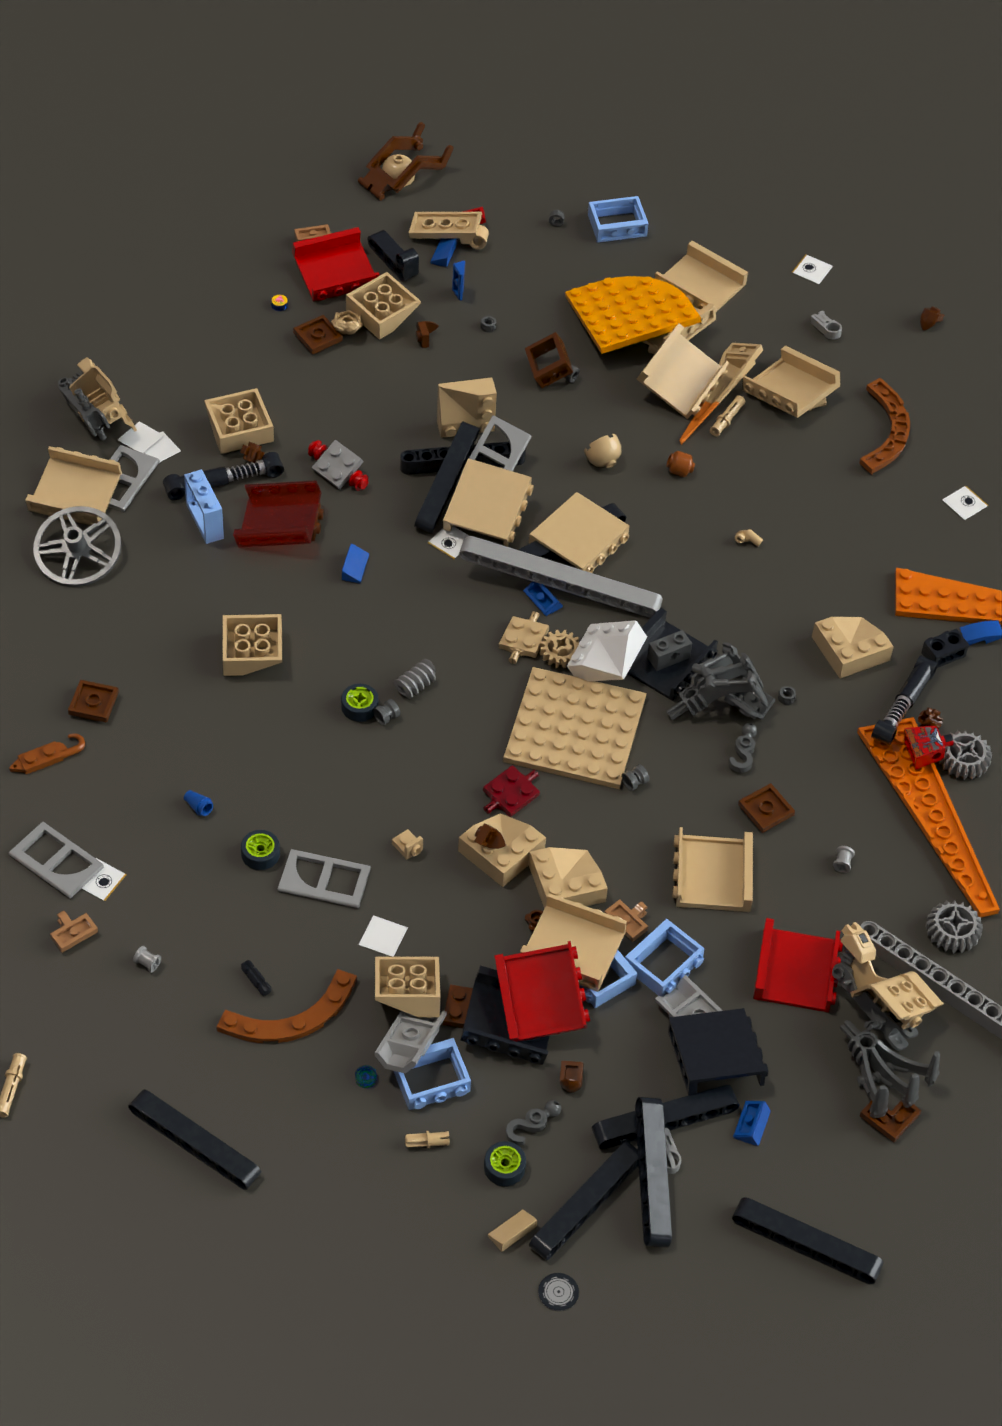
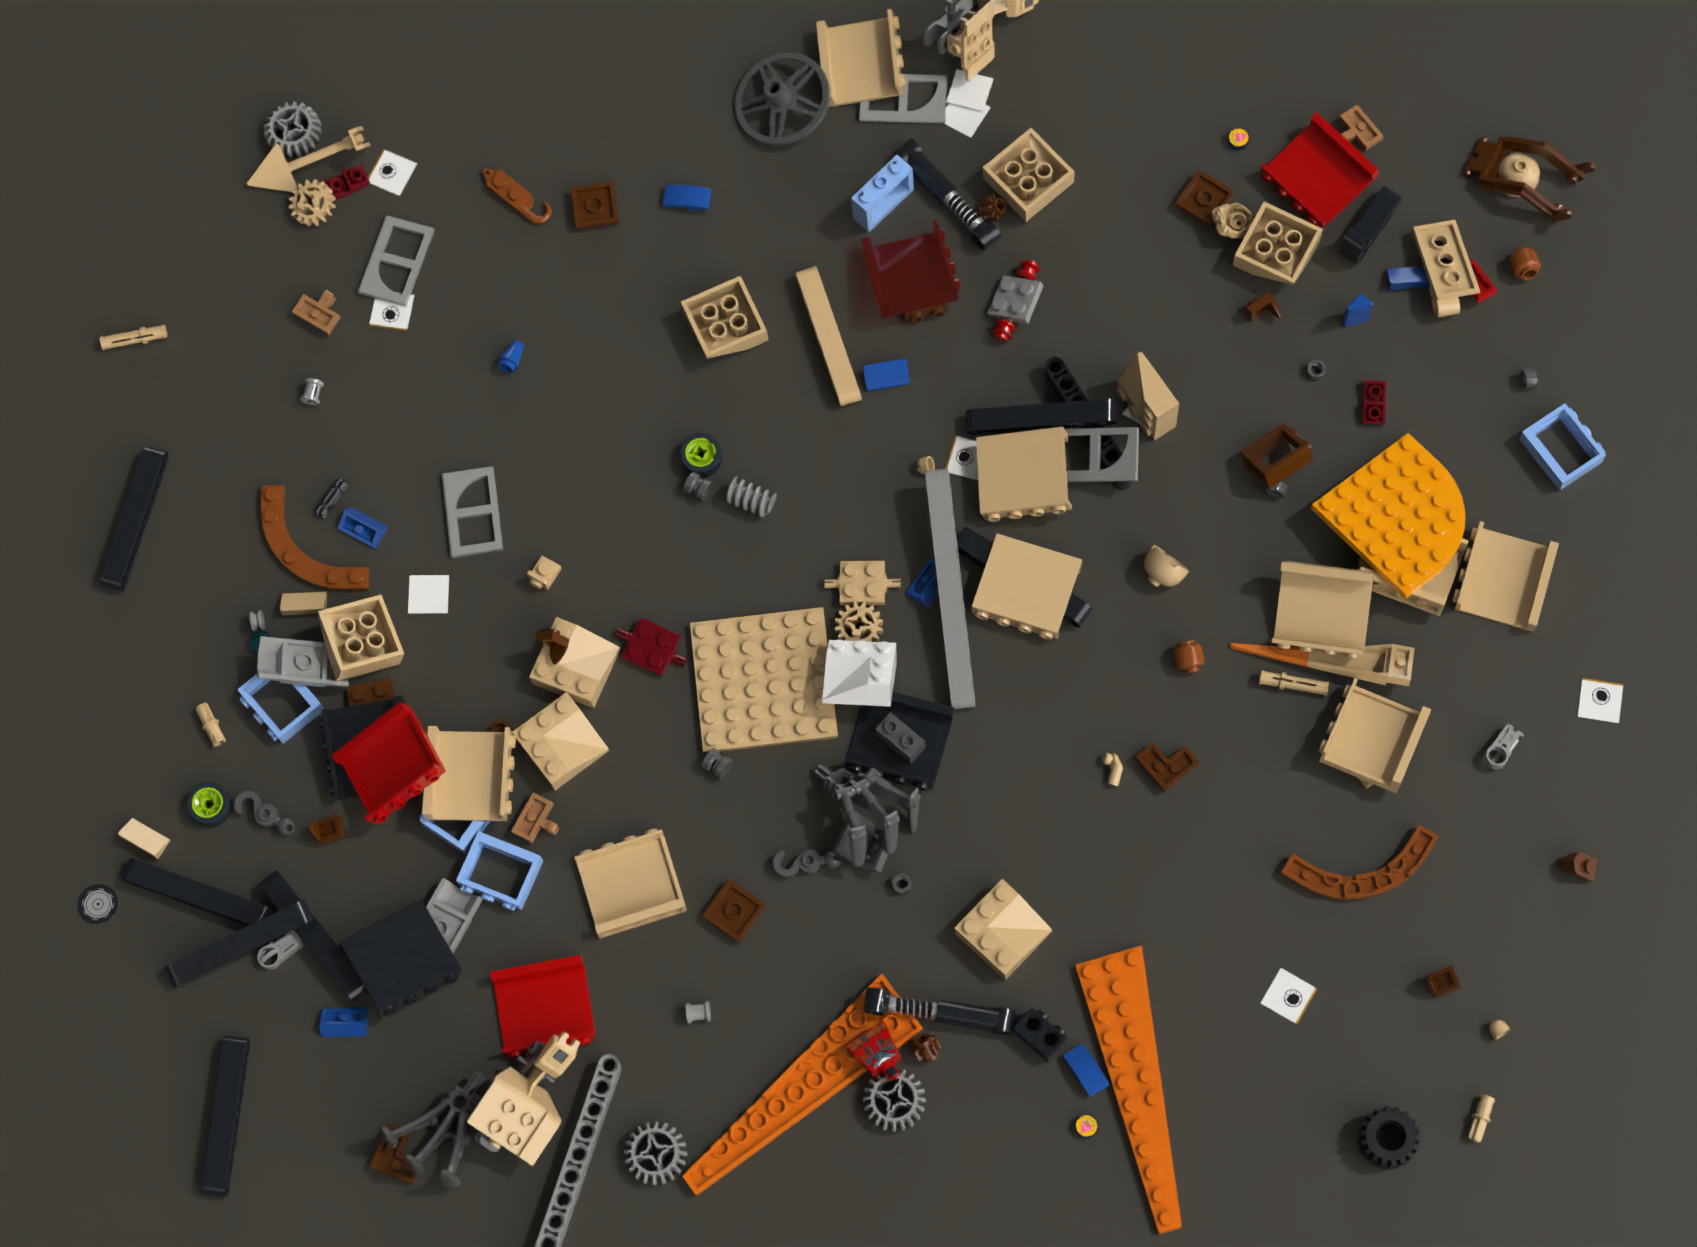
camera: 80 degrees right, 20 degrees up
(123, 637) = (687, 196): none -> blue slope
(263, 841) = (482, 428): black wheel -> none
(296, 964) = (362, 527): none -> blue slope
(301, 587) = (828, 336): none -> tan beam
(345, 1069) = (257, 620): none -> light grey bush
(346, 1030) = (303, 603): none -> tan slope
(445, 564) = (925, 464): none -> tan hinge
(469, 189) = (1524, 263): none -> dark orange head
(534, 304) = (1374, 402): none -> dark red slope
(762, 508) = (1167, 771): none -> reddish brown plate
(989, 414) = (1443, 982): none -> reddish brown plate

